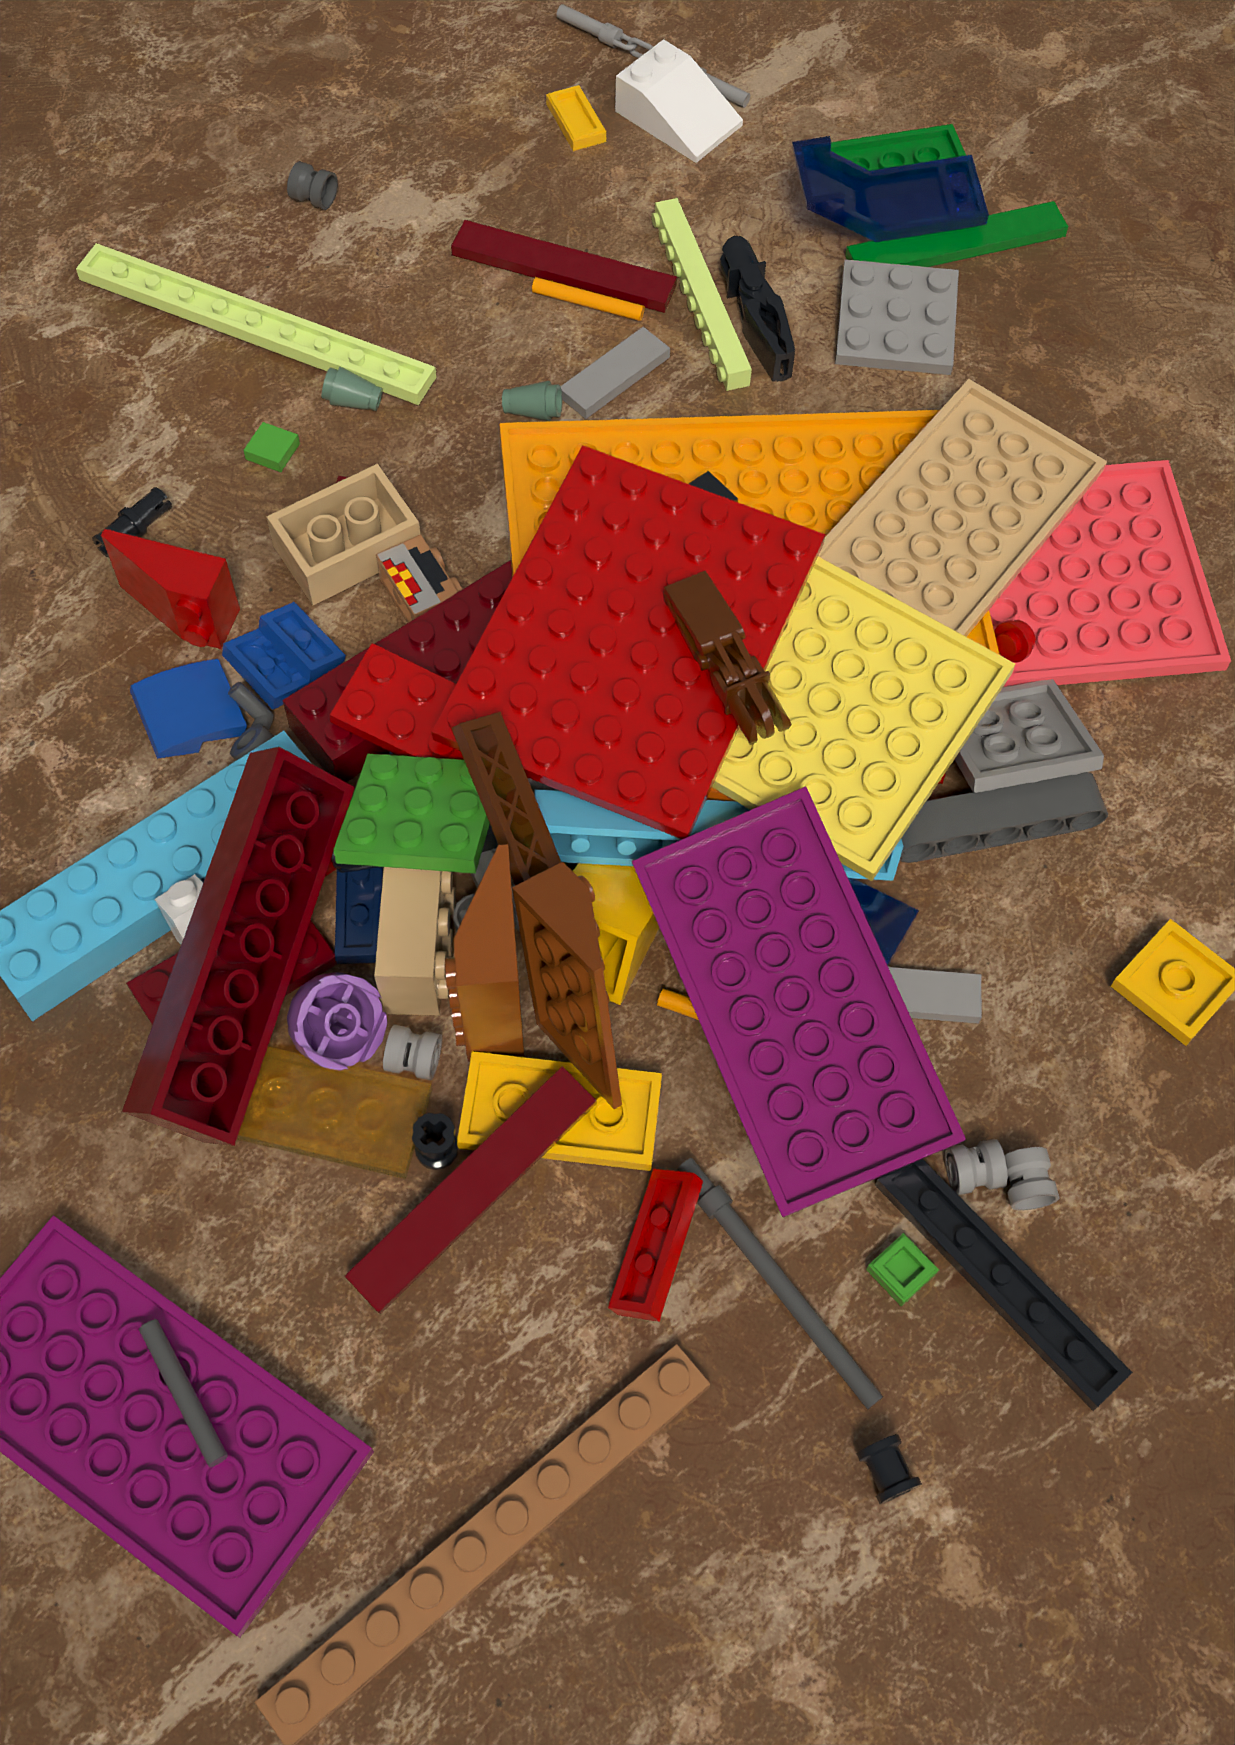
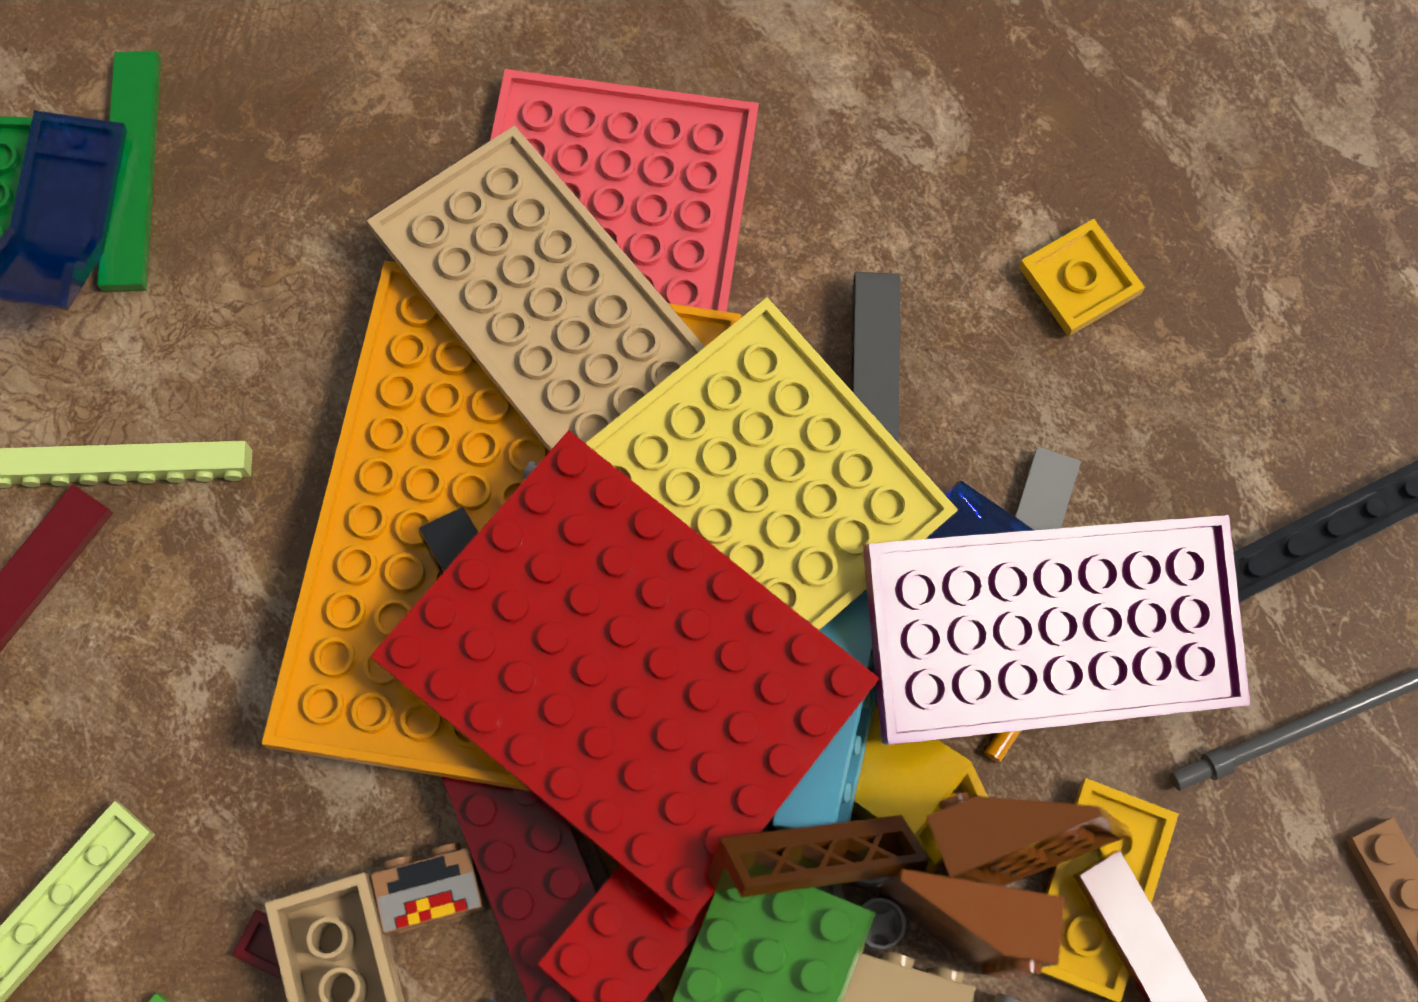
camera: 75 degrees left, 10 degrees up
(350, 390) = (110, 912): sand green cone -> none
(534, 400) = (201, 696): sand green cone -> none
(588, 299) = (63, 595): light orange bar -> none
(614, 372) = (186, 593): light grey tile -> none
(656, 1244) = (1256, 831): red plate -> none
(718, 646) = (685, 580): reddish brown arm -> none
(759, 308) = (155, 407): black arm -> none
(897, 317) = (218, 265): light grey plate -> none
(902, 1269) = (1307, 612): bright green tile -> none
(976, 1166) = (1237, 504): light grey wheel -> none
(1015, 640) = (692, 288): red plate -> none
(1027, 739) = (819, 300): light grey plate -> none
(1030, 1179) = (1250, 473): light grey wheel -> none

